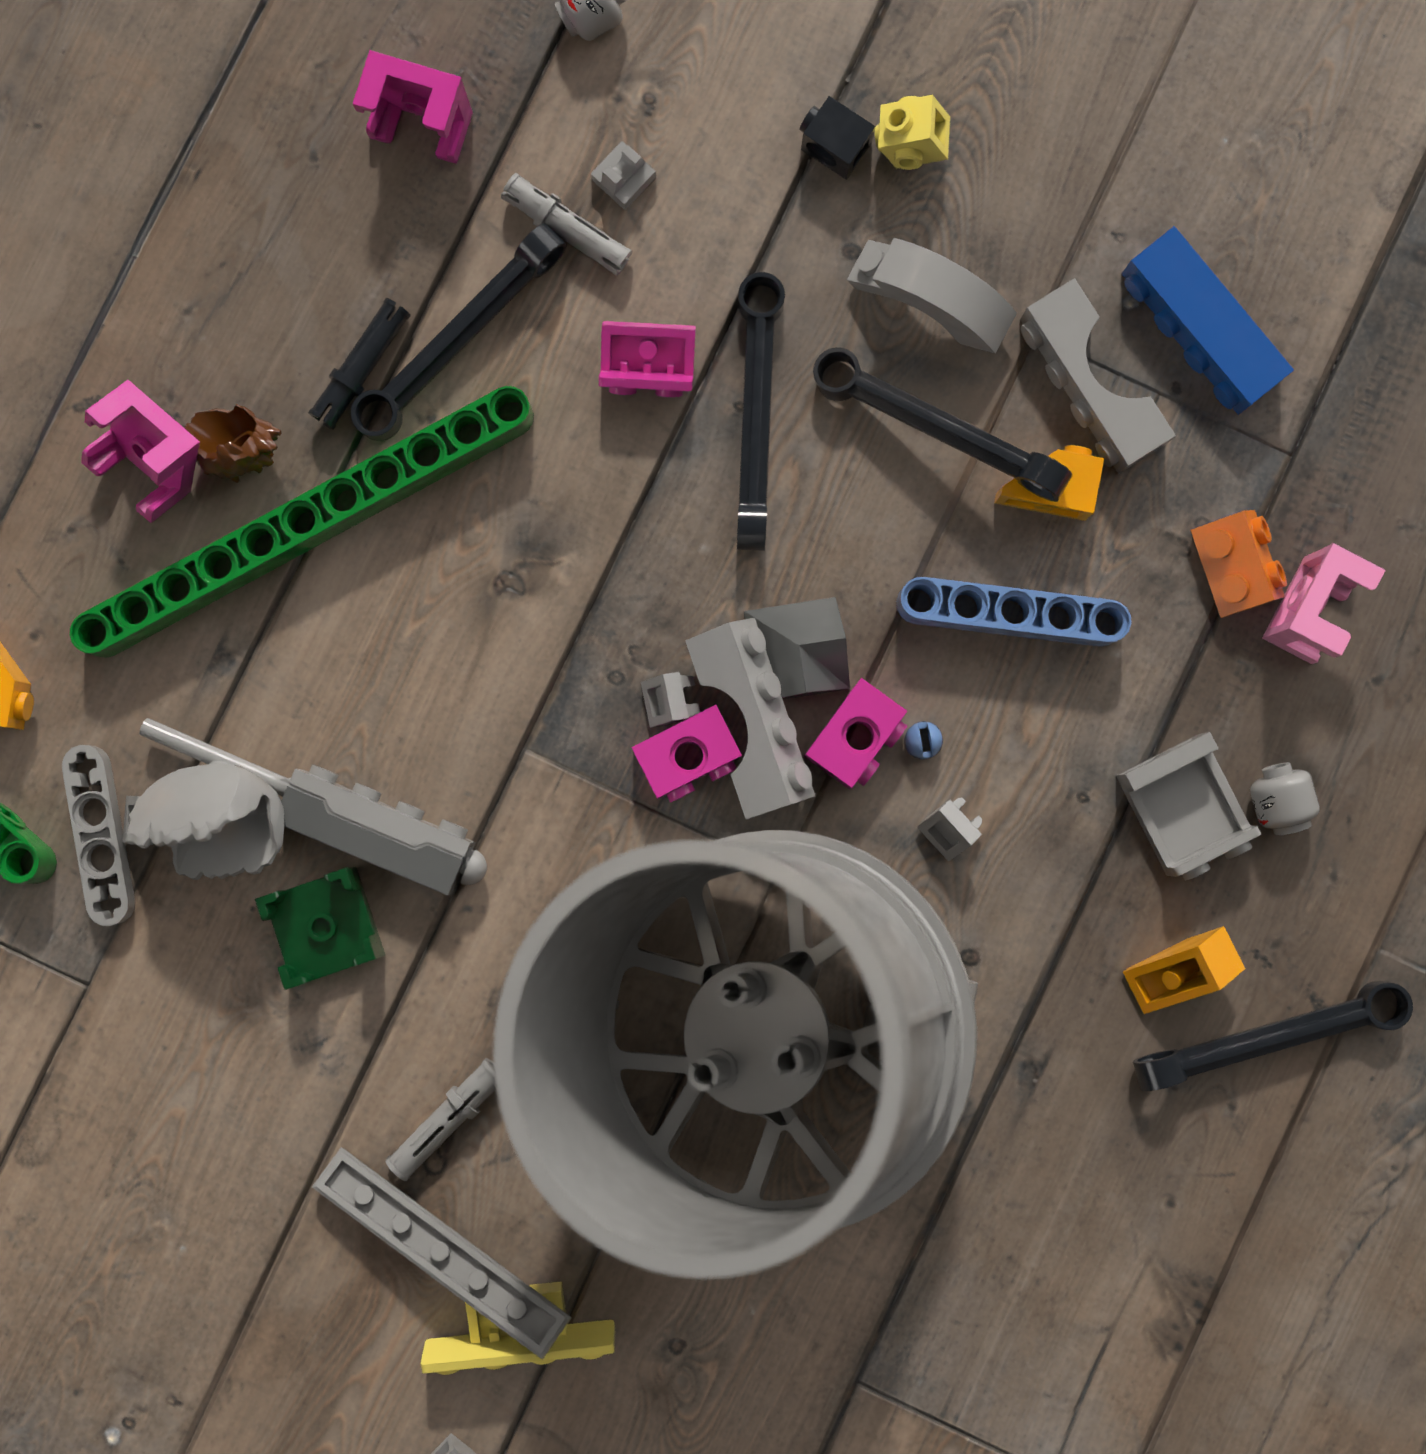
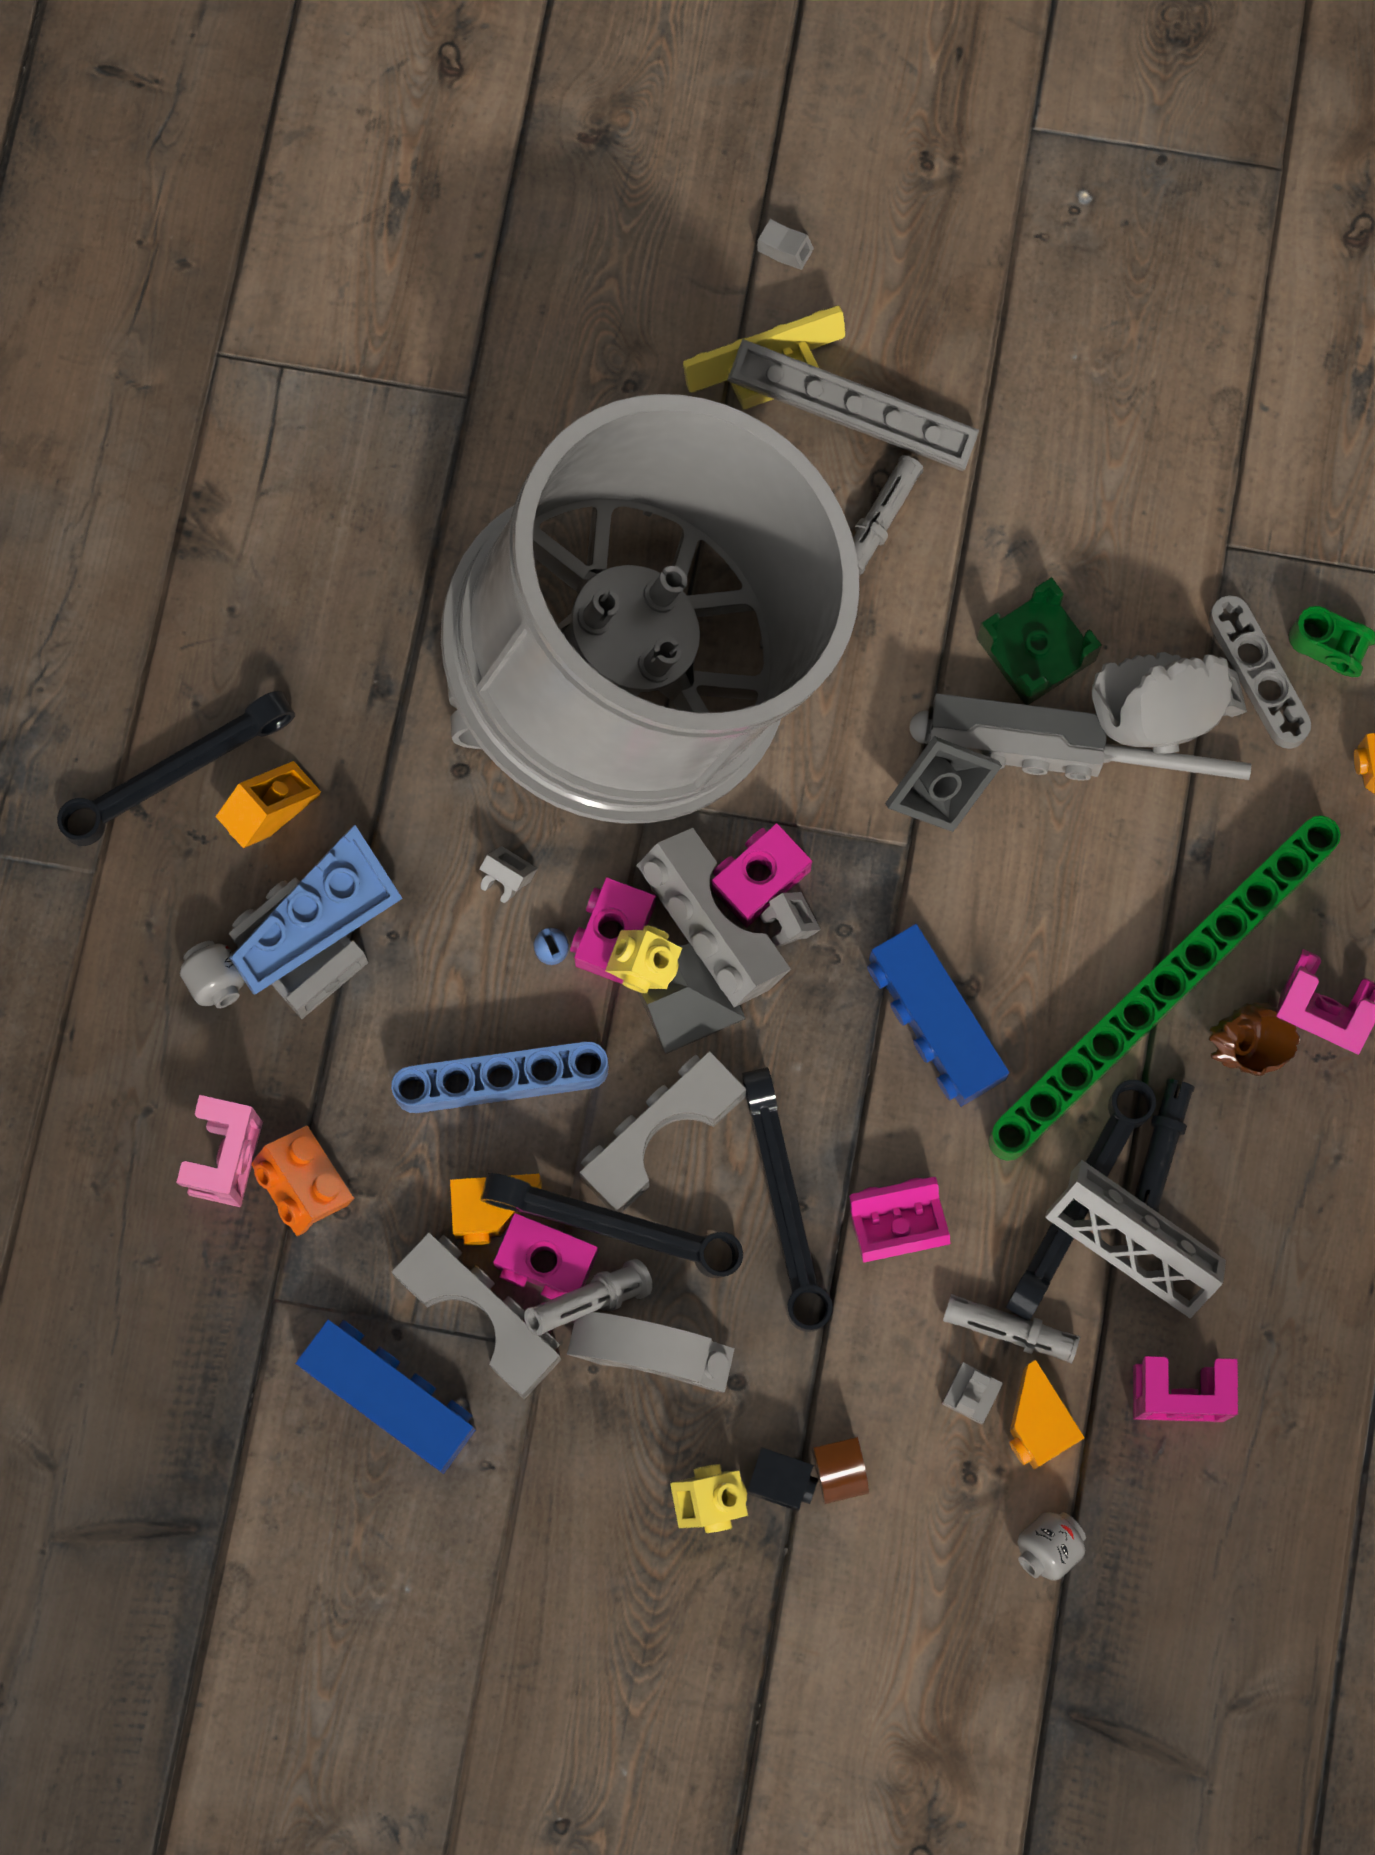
camera: 165 degrees right, 10 degrees down
(402, 272) = (1148, 1229): none -> light grey fence
(471, 792) = (943, 784): none -> dark grey slope
(546, 554) = (937, 1015): none -> blue brick
(565, 123) = (1040, 1420): none -> light orange slope
(775, 137) = (841, 1470): none -> reddish brown brick
(838, 681) = (644, 959): none -> light yellow brick
(916, 482) = (701, 1094): none -> light grey arch
(965, 359) = (604, 1292): none -> light grey pin
(1008, 385) = (526, 1239): none -> dark pink brick
(1158, 834) = (321, 909): none -> medium blue wing

